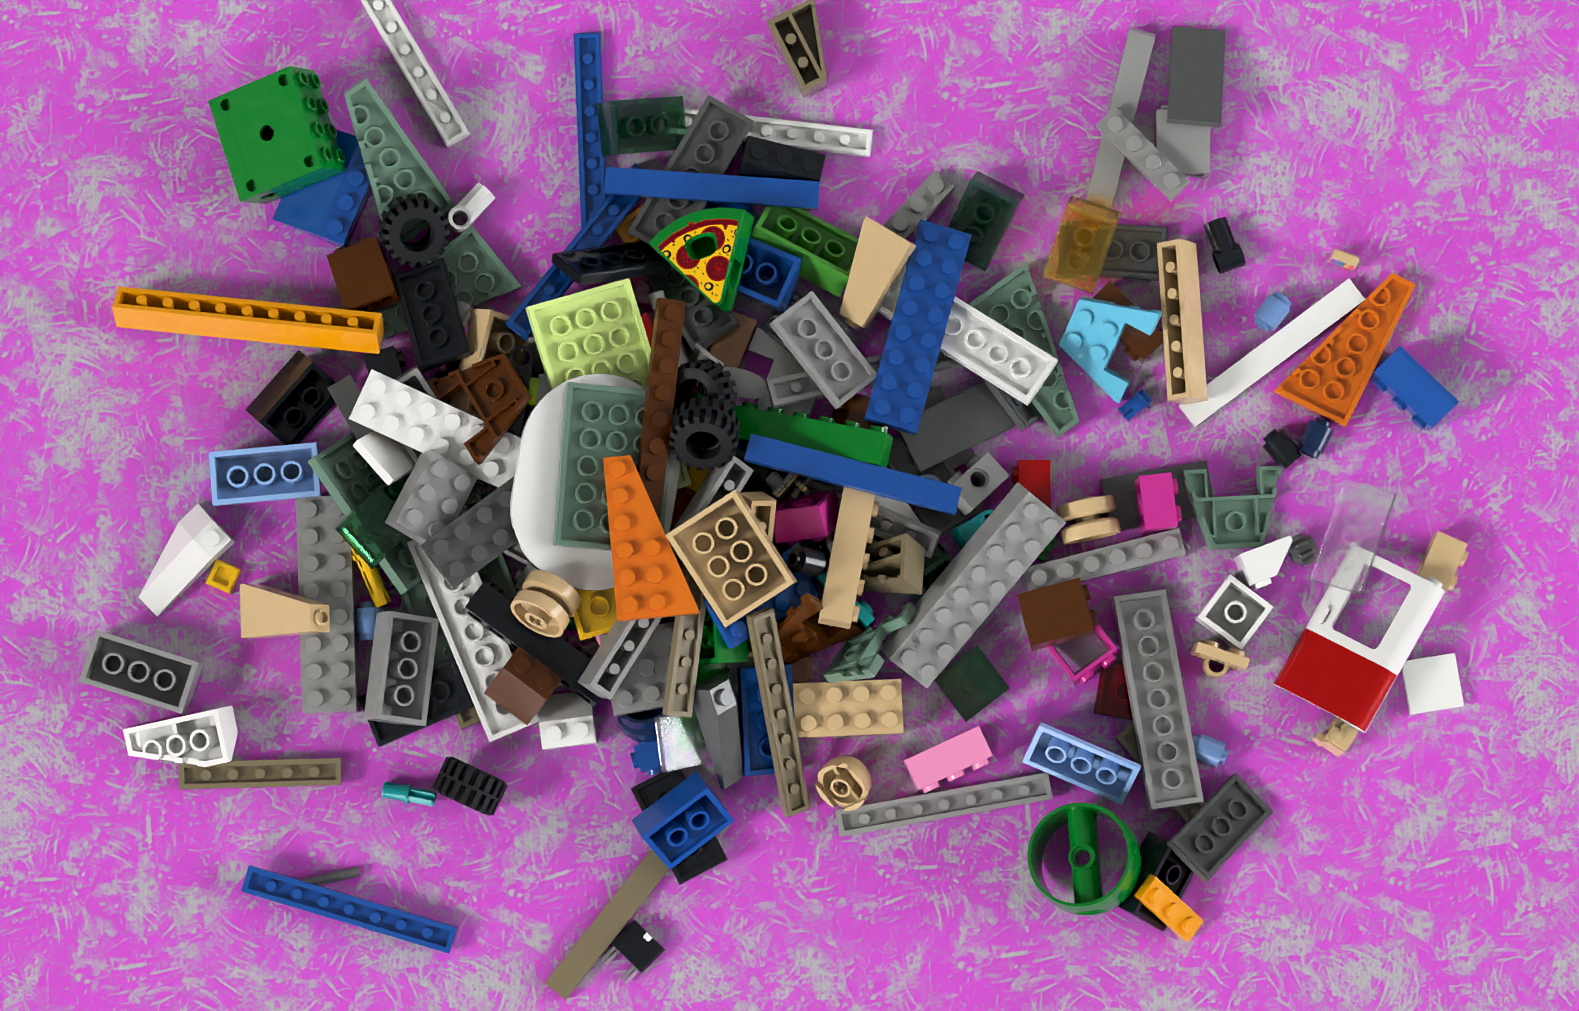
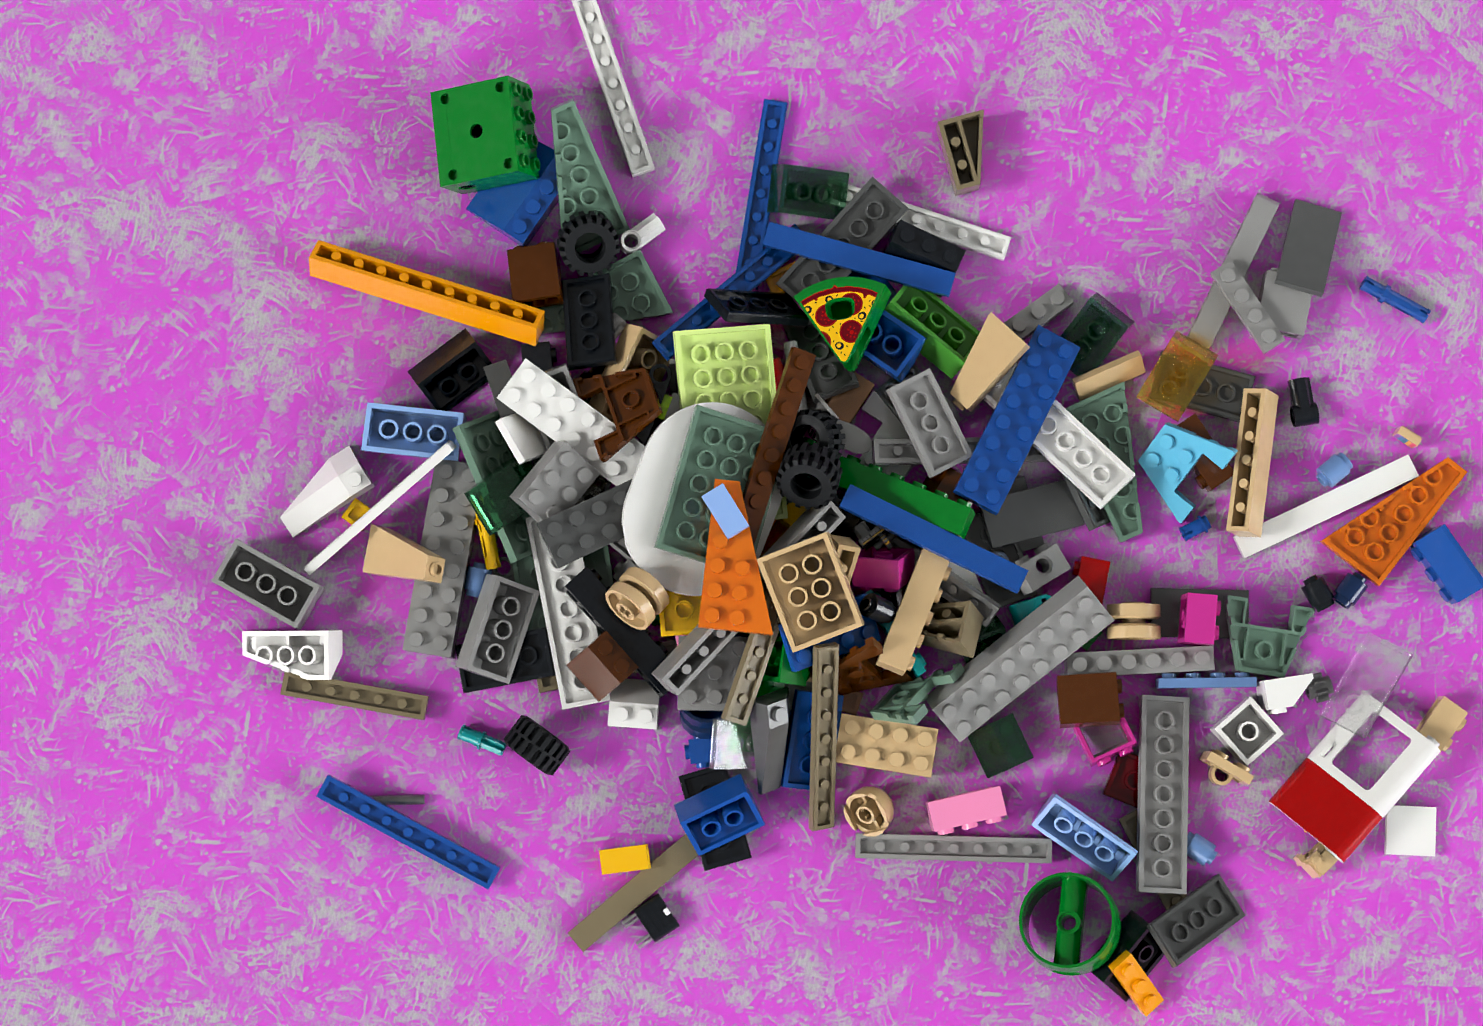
camera: 15 degrees right, 0 degrees up
(246, 562) = (379, 507): none -> white tile
(590, 890) = (625, 859): none -> yellow tile
(621, 490) = (725, 511): none -> light blue tile
(1008, 258) = (1108, 375): none -> tan tile
(1191, 565) = (1216, 680): none -> medium blue plate
(1301, 113) = (1396, 300): none -> blue pin

